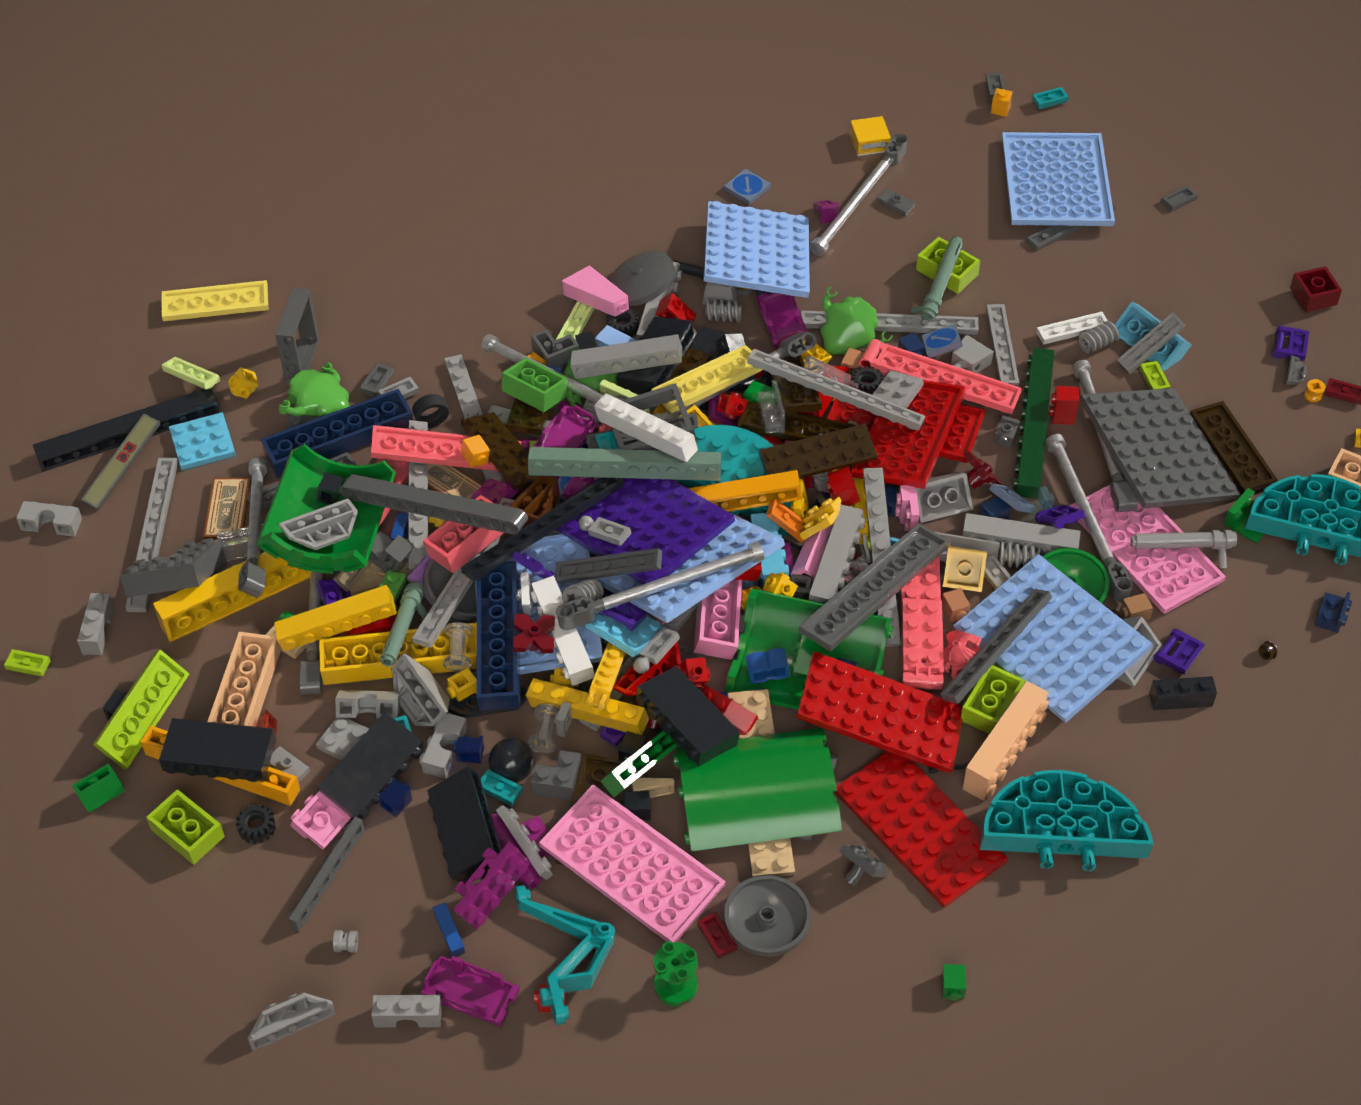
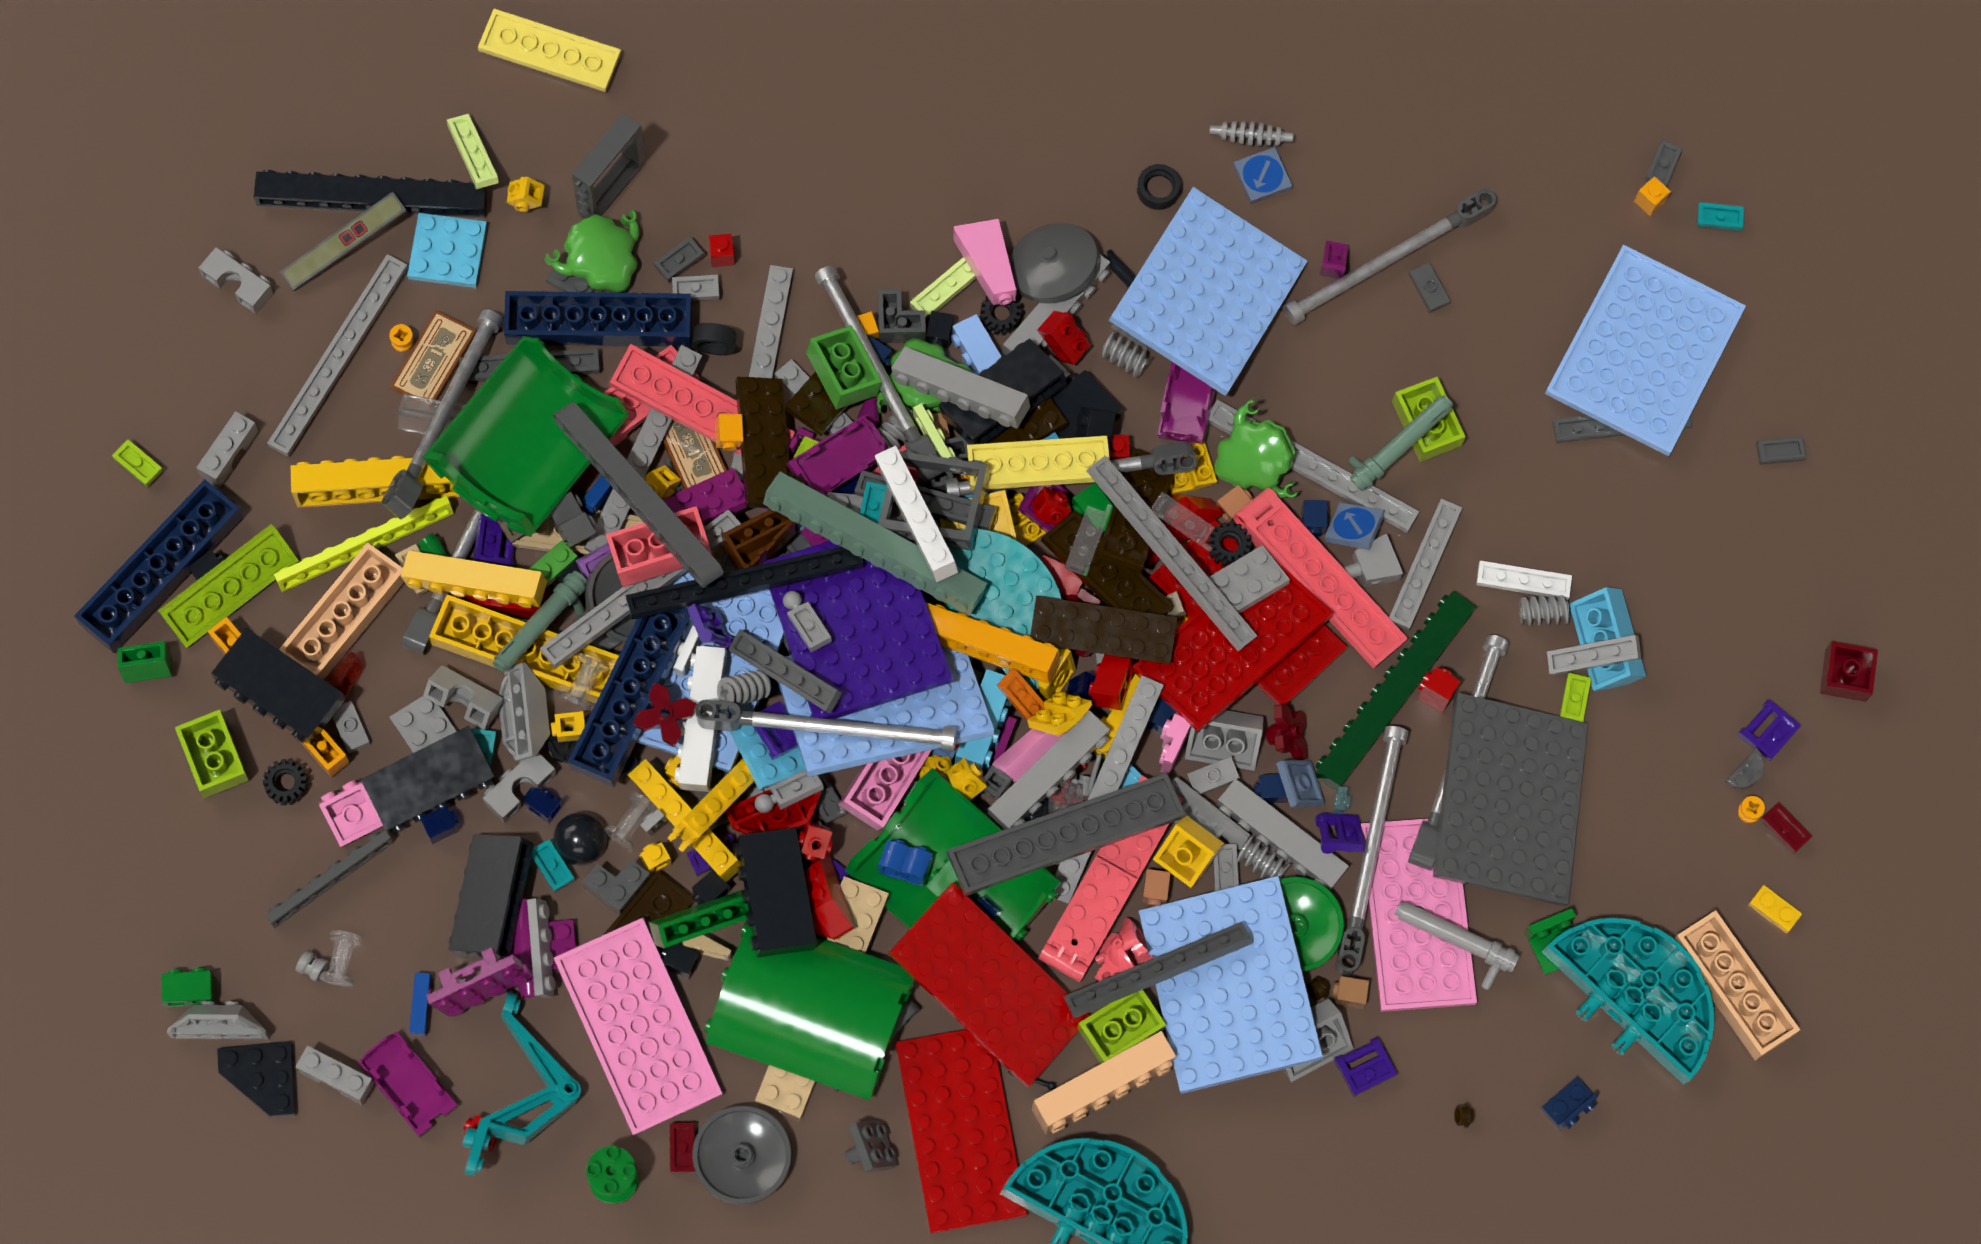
camera: 20 degrees right, 20 degrees up
(77, 721) = (158, 566): none -> dark blue brick
(182, 570) = (337, 438): dark grey piece -> none
(196, 504) = (402, 343): none -> light orange wheel
(222, 651) = (377, 537): none -> neon yellow plate
(247, 1003) = (187, 988): none -> green brick
(322, 525) = (506, 463): light grey wedge -> none
(328, 489) = (544, 406): black brick -> none
(344, 1042) = (262, 1075): none -> black plate
(369, 936) = (341, 958): none -> clear piece
(404, 361) = (721, 250): none -> red brick
(577, 741) = (655, 858): none -> yellow brick
(683, 207) = (1163, 171): none -> black tyre
(725, 166) = (1251, 133): none -> light grey piece
(869, 135) = (1455, 170): yellow piece -> none
(950, 520) = (1213, 776): none -> light grey plate
(1006, 431) = (1360, 682): dark grey brick -> none
(1183, 693) = (1333, 1121): black brick -> none
(1233, 447) = (1602, 838): dark brown plate -> none

